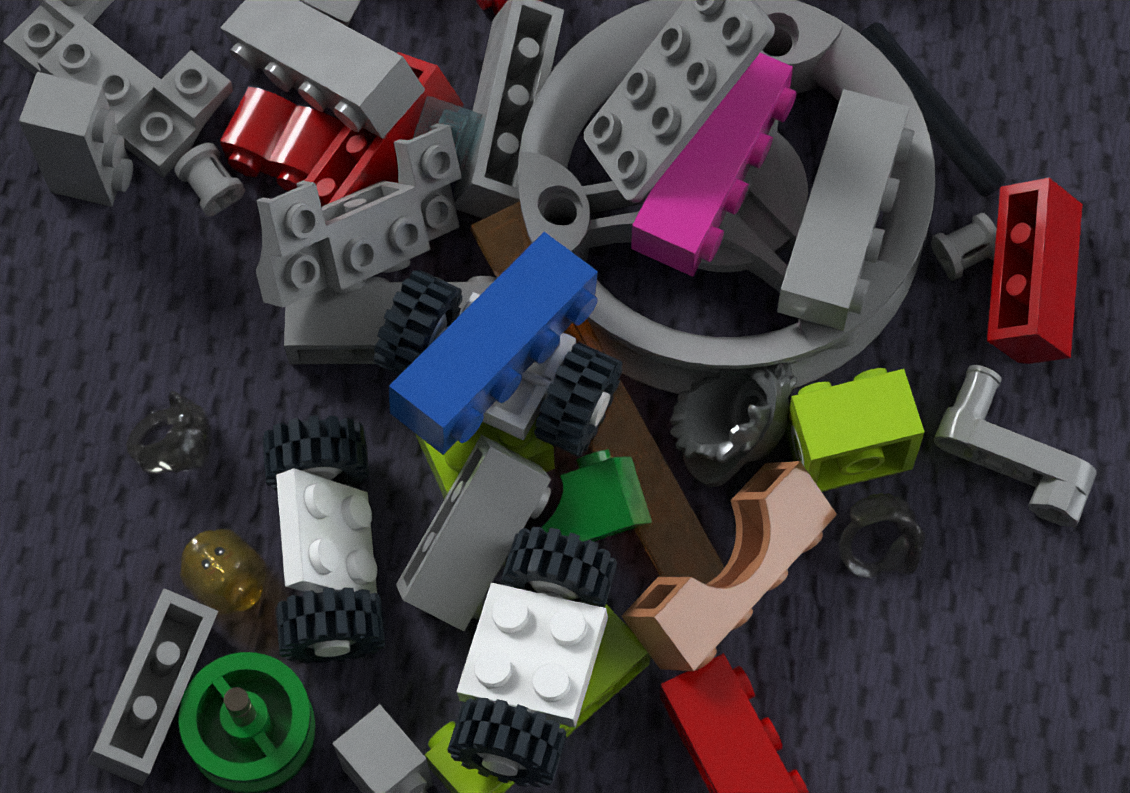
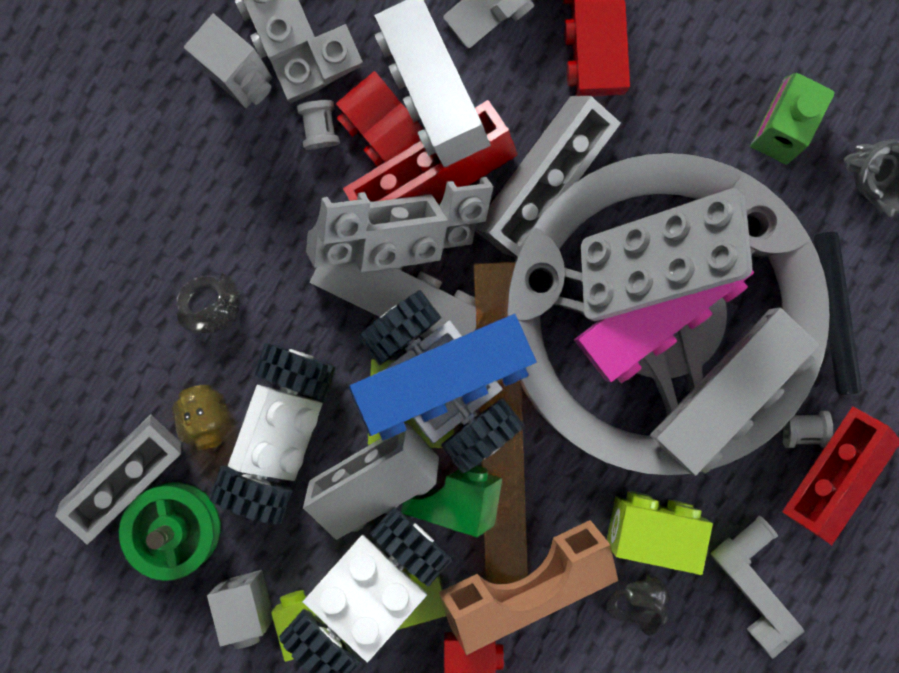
camera: 25 degrees right, 20 degrees up
(463, 124) = (498, 172): clear light blue tile -> none
(732, 420) = (581, 484): dark grey hair -> none

